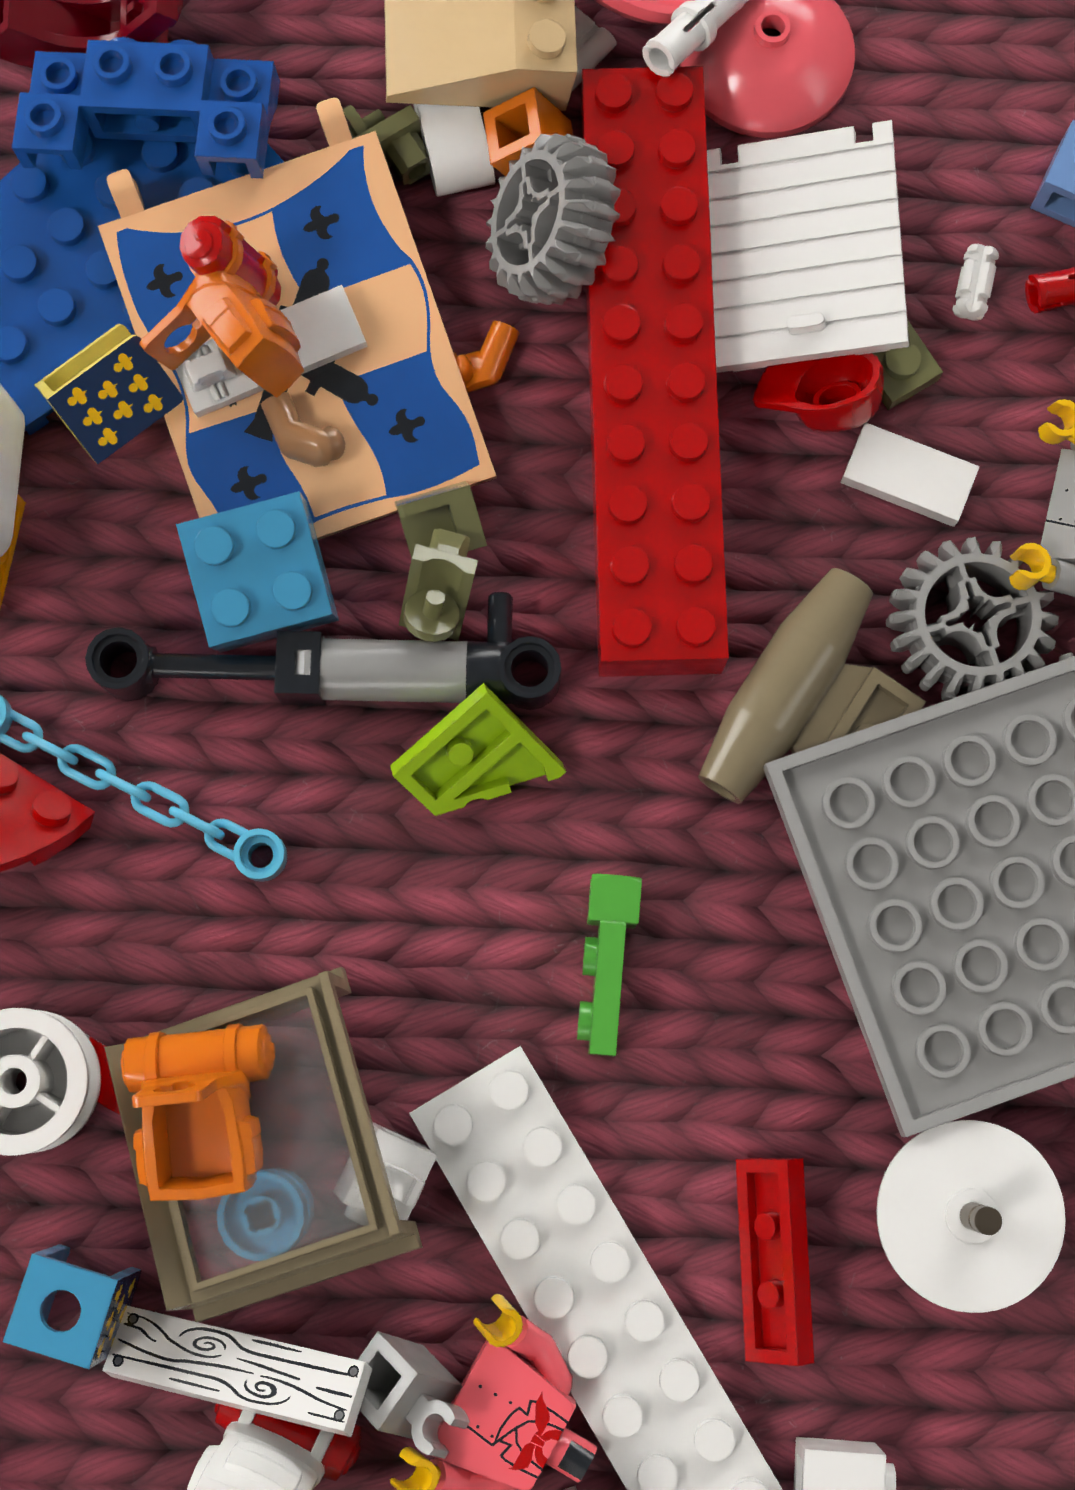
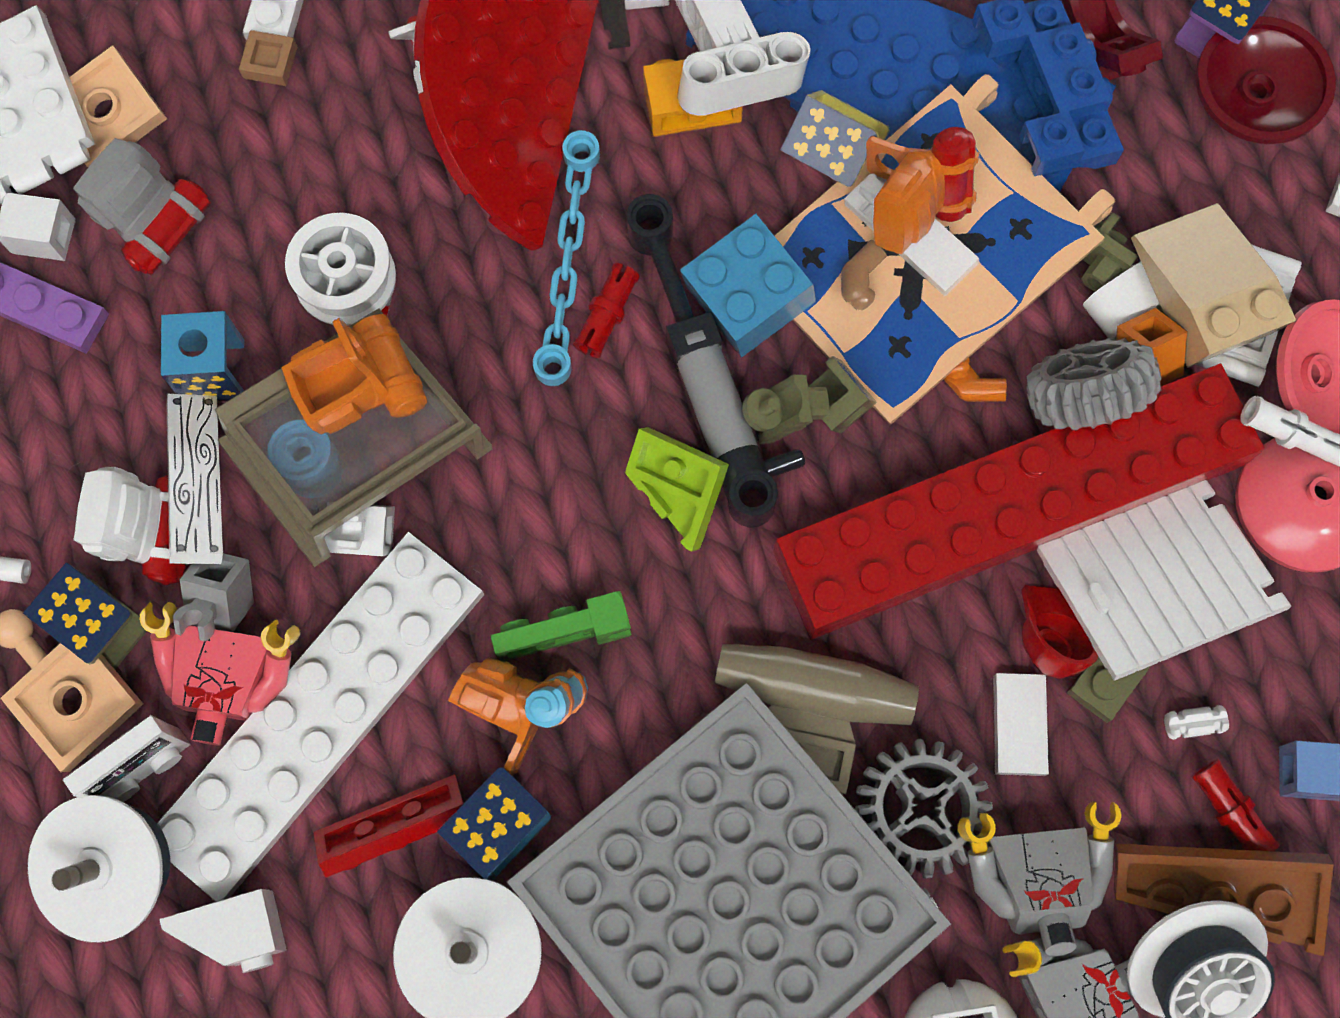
camera: 70 degrees right, 5 degrees down
(213, 761) = (606, 310): none -> red pin
(687, 1048) = (518, 703): none -> orange piece
(823, 1128) = (495, 824): none -> dark blue piece

